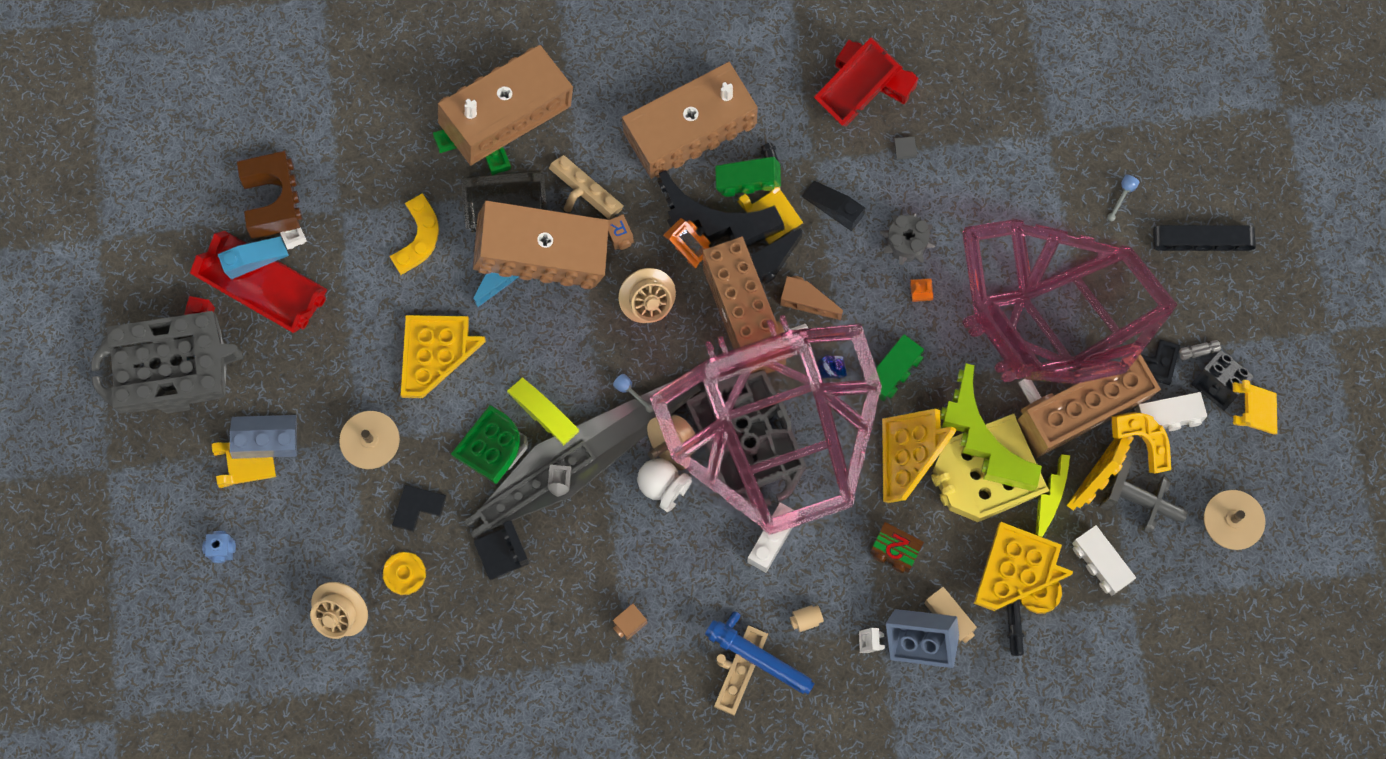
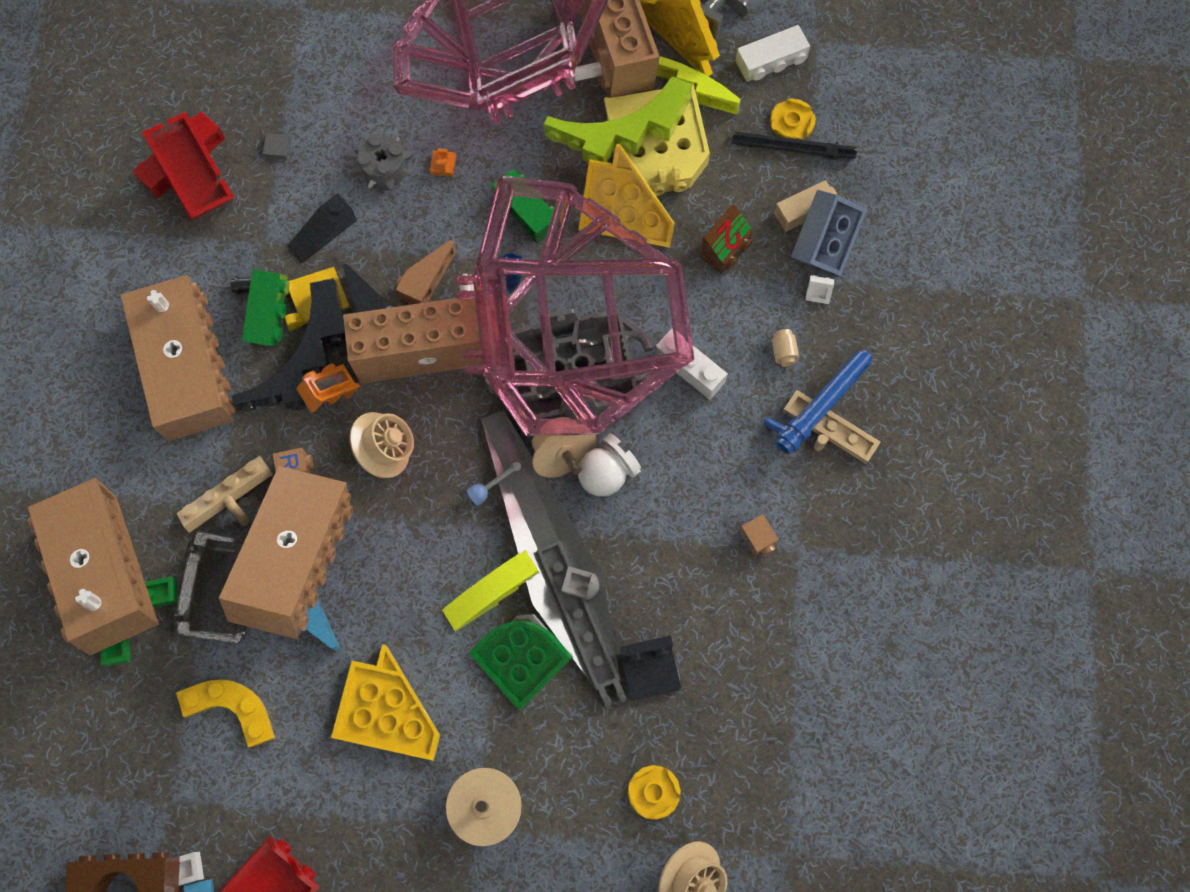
camera: 80 degrees left, 0 degrees up
(415, 501) = (567, 763): black tile -> none
(1018, 567) = (769, 129): yellow wing -> none

